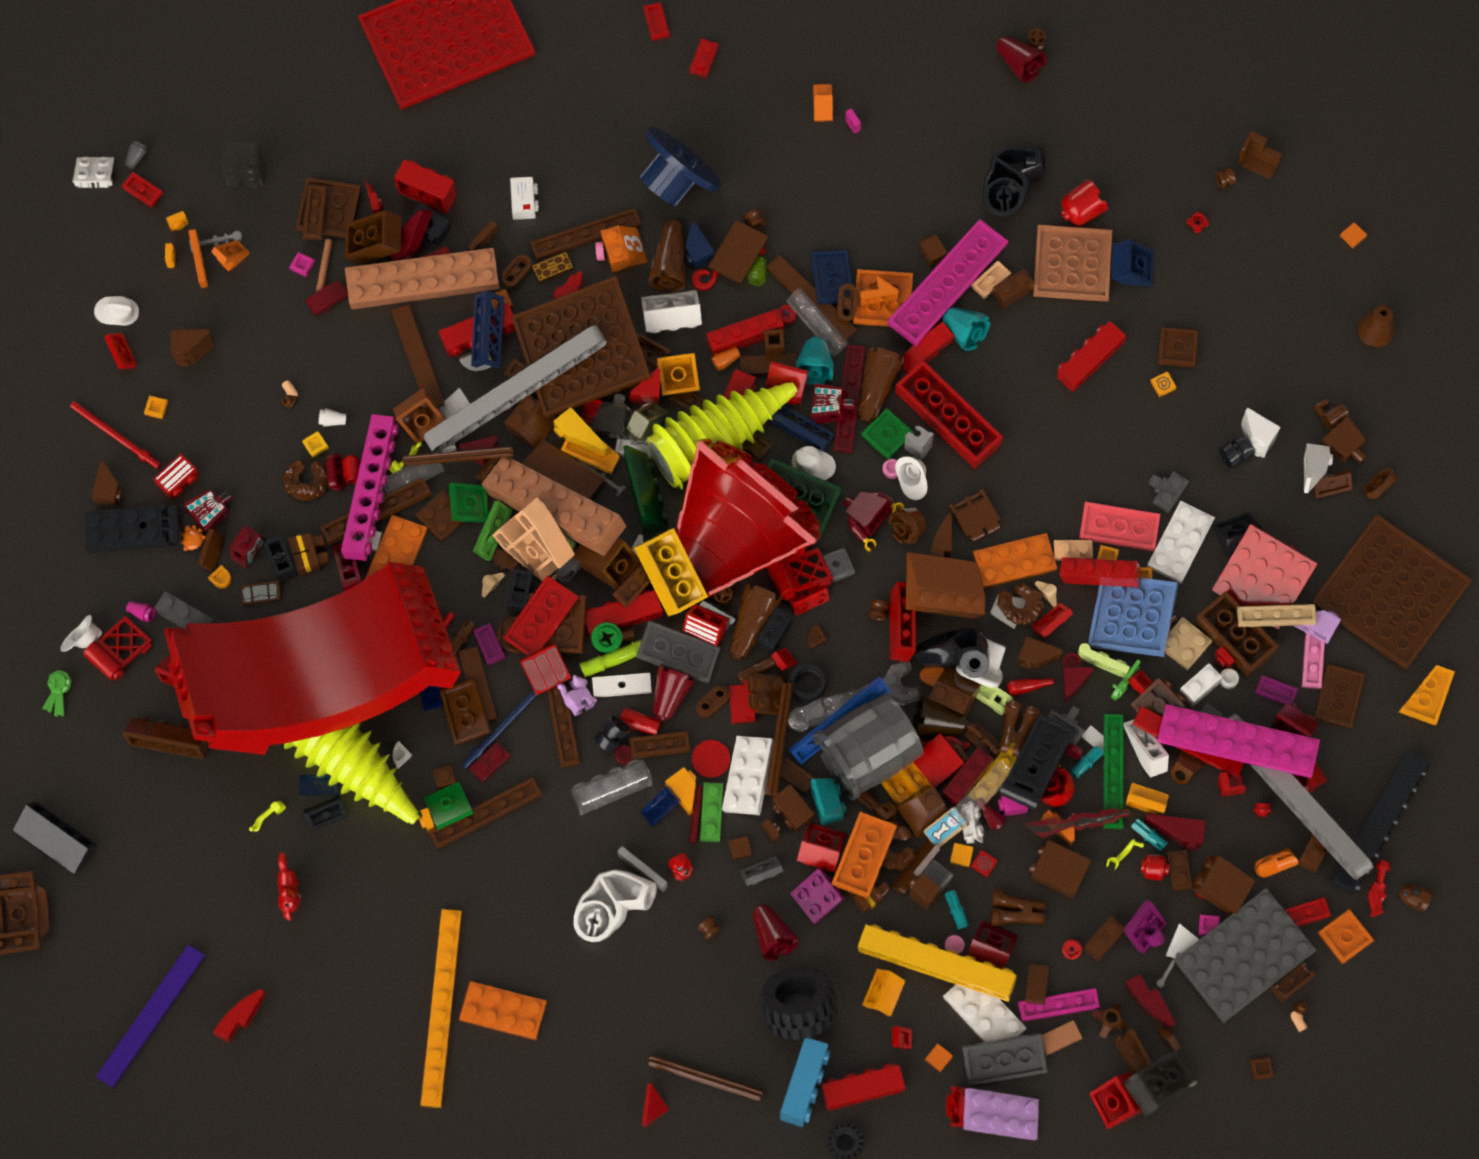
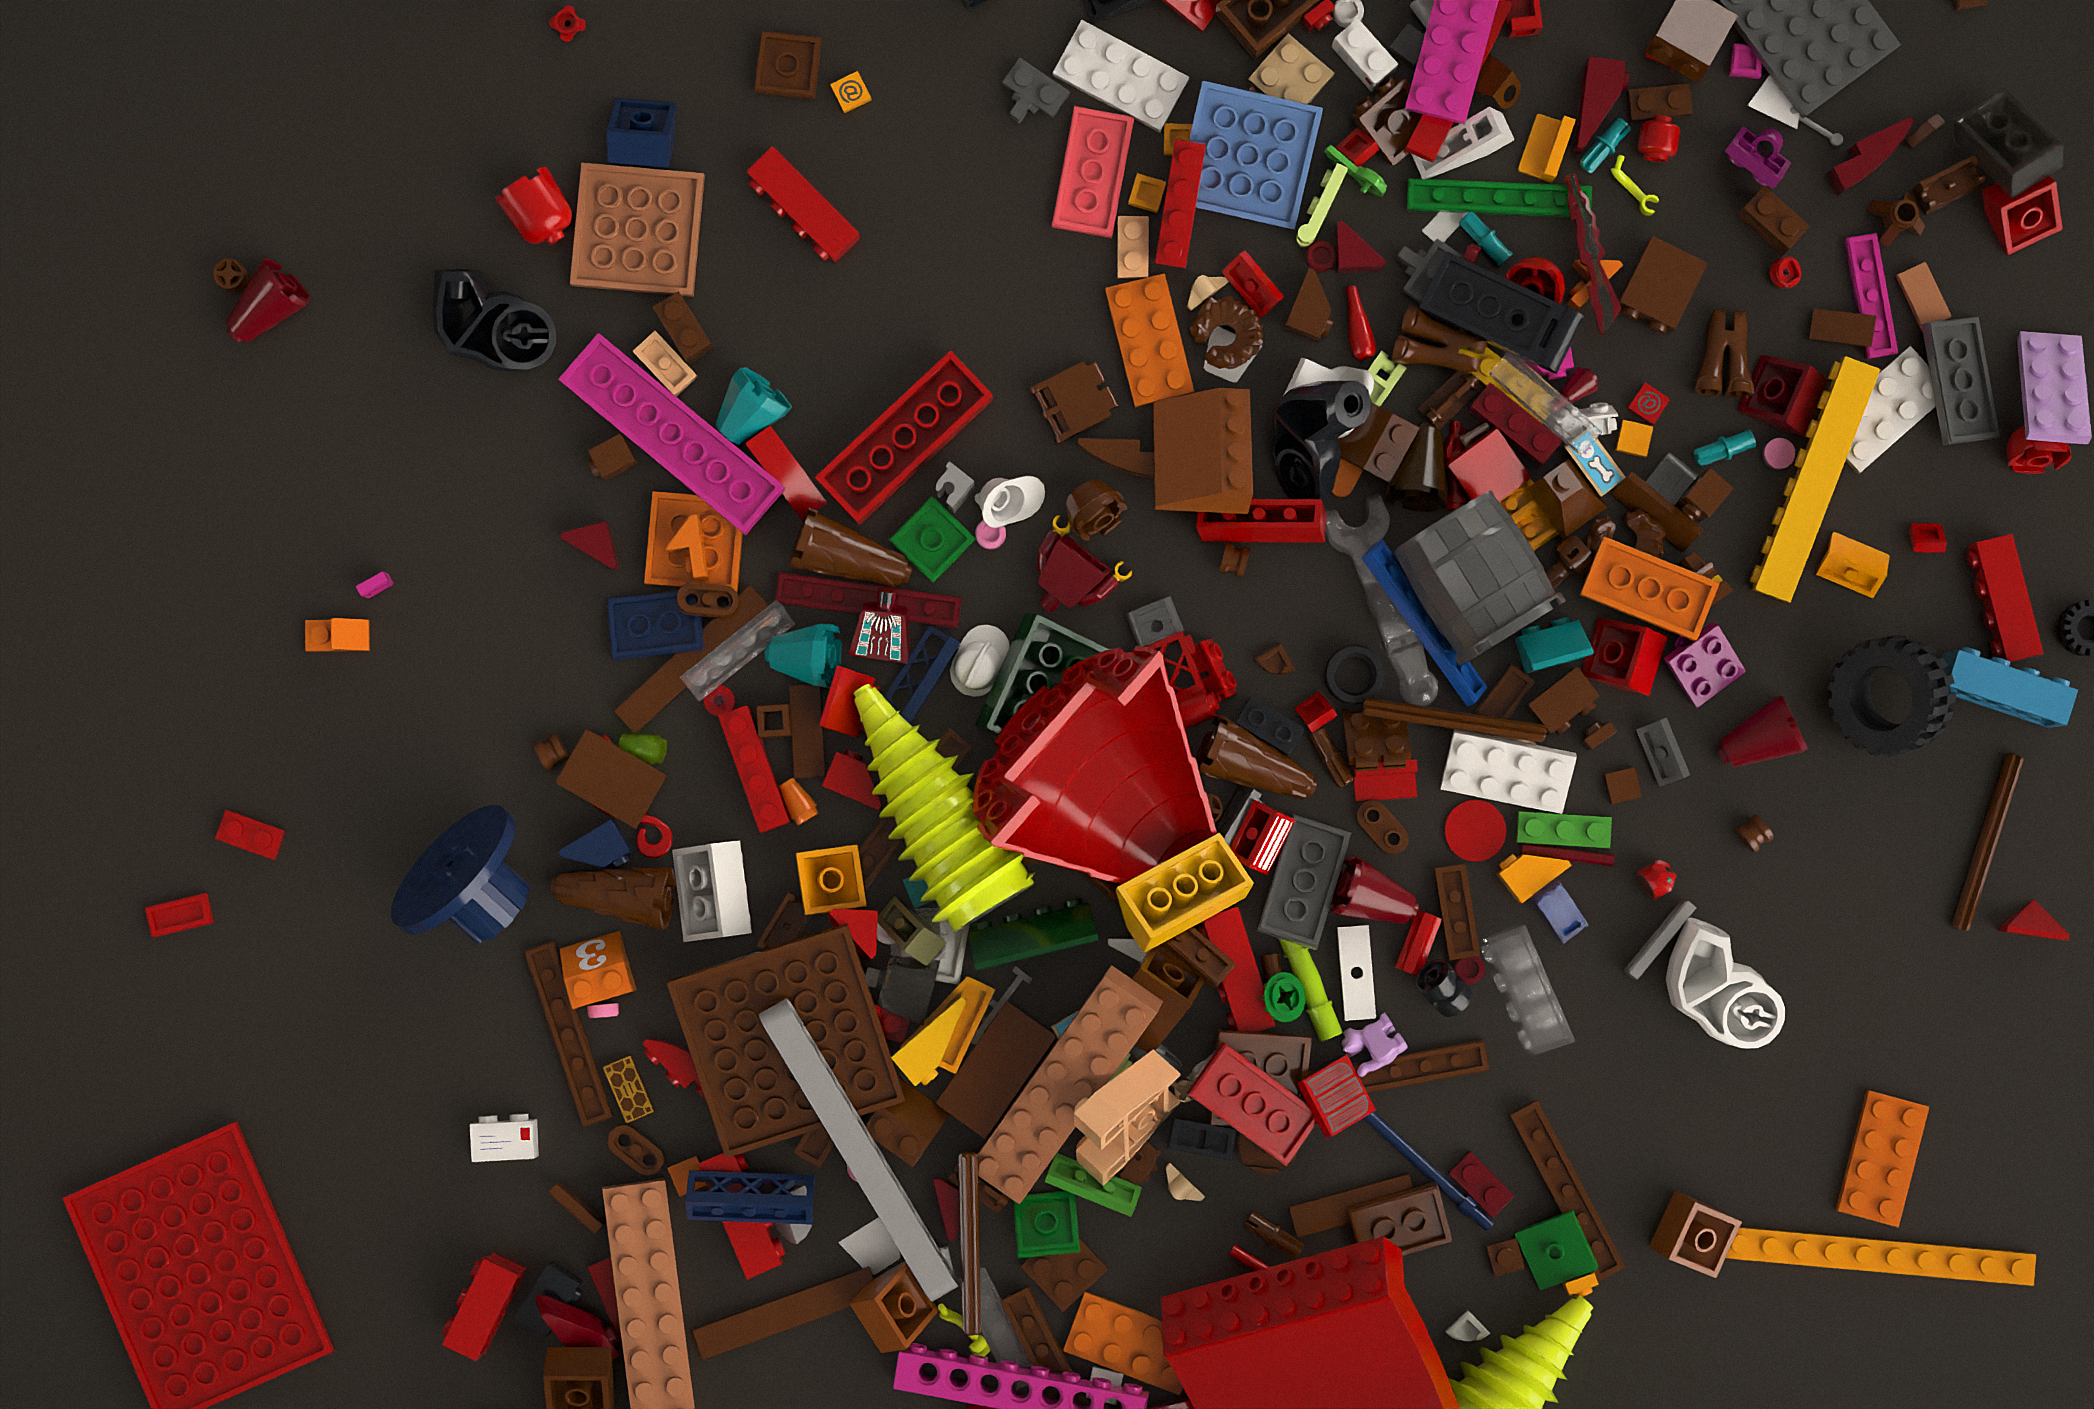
camera: 90 degrees left, 15 degrees up
(375, 203) = (509, 1389): red plate -> none
(456, 890) = (1695, 1234): none -> dark orange slope
(489, 644) = (1283, 1188): magenta tile -> none
(880, 243) = (596, 542): none -> dark red slope
(938, 1057) = (1955, 482): orange tile -> none

